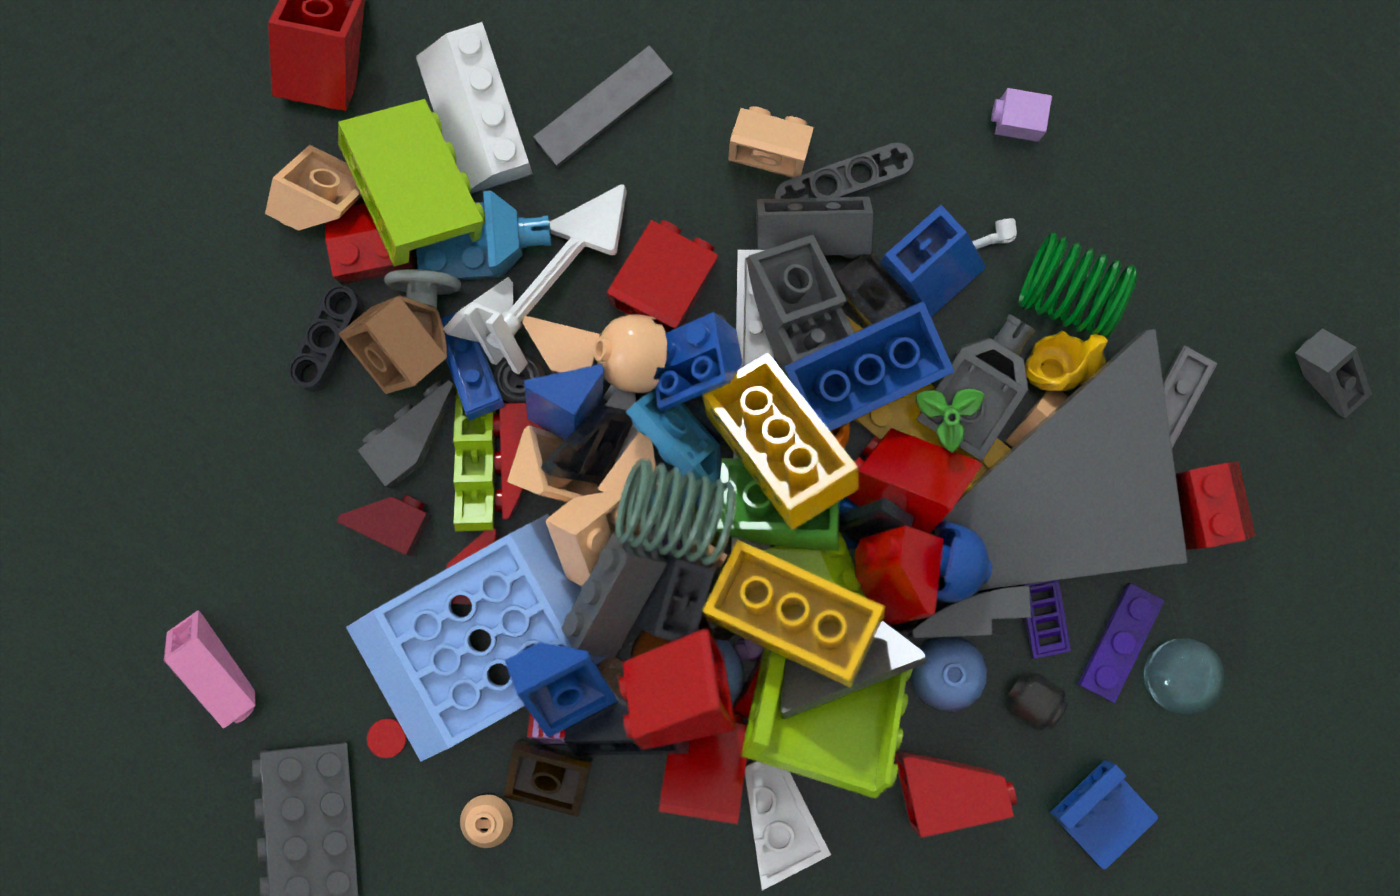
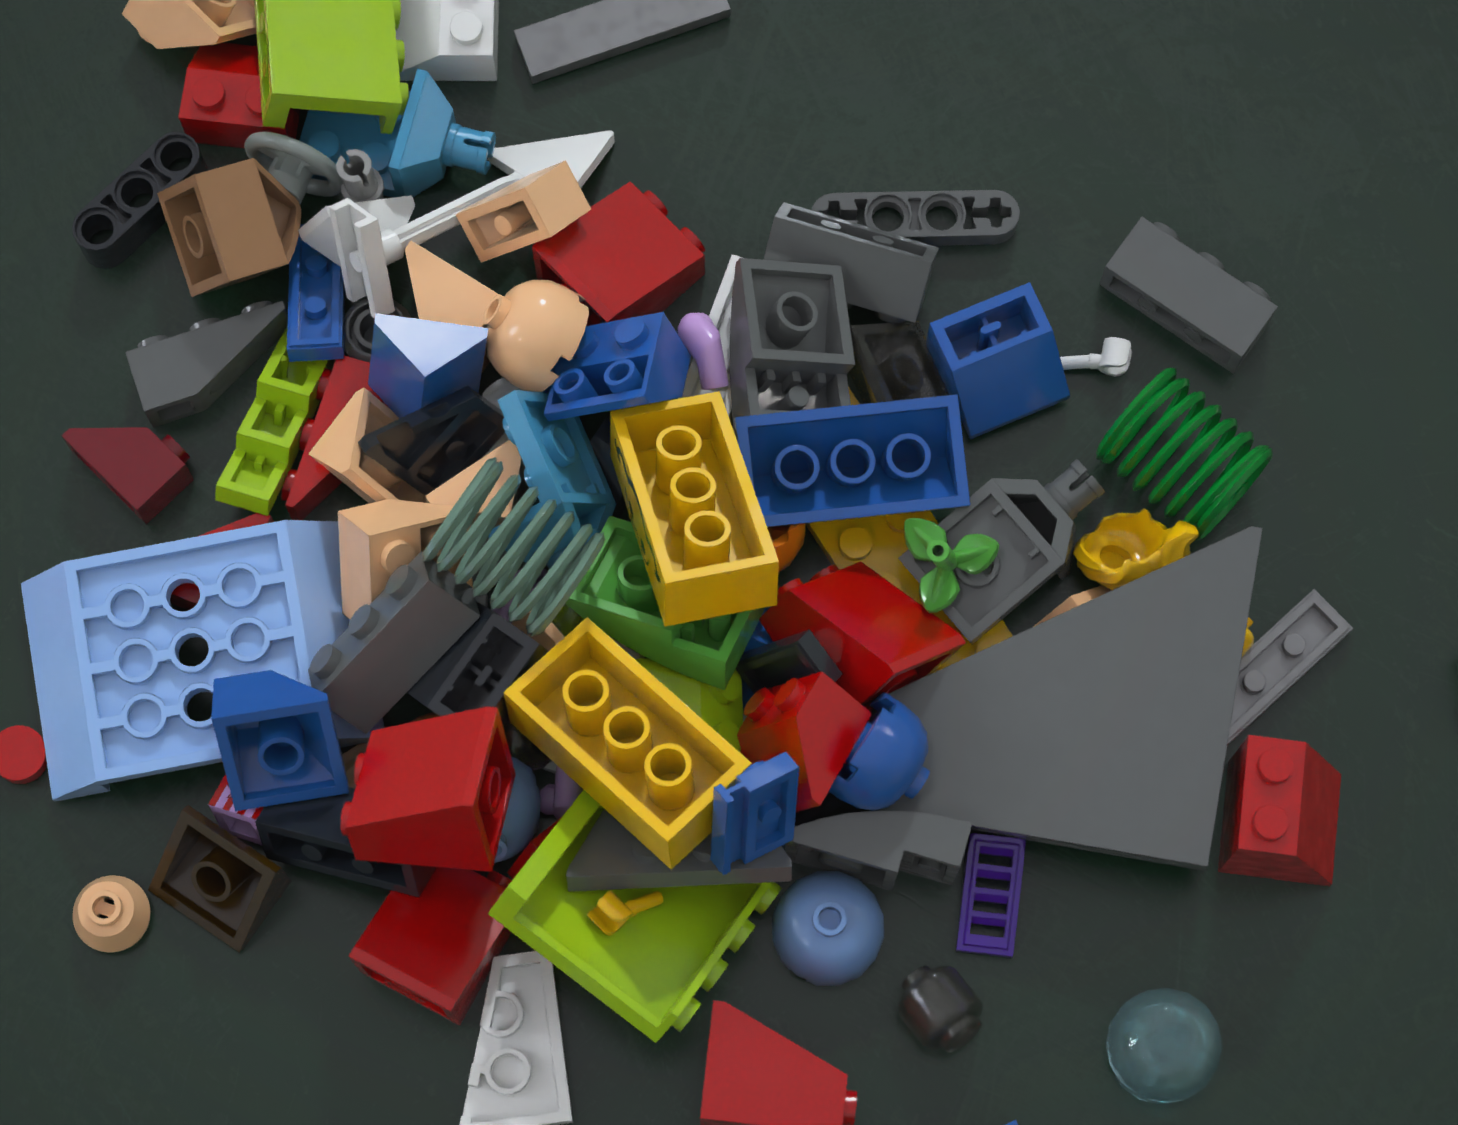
camera: 25 degrees right, 10 degrees down
(472, 281) = (359, 178): none -> light grey axle
(592, 269) = (524, 212): none -> light nougat slope
(744, 321) = (705, 346): none -> lavender arm
(770, 141) = (827, 135): light nougat slope -> none
(818, 724) = (612, 913): none -> yellow hand
(897, 634) = (754, 812): none -> blue plate
(1021, 114) = (1189, 206): lavender brick -> none
(1042, 173) = (1188, 293): none -> dark grey brick
(1120, 642) = (1088, 969): dark purple plate -> none

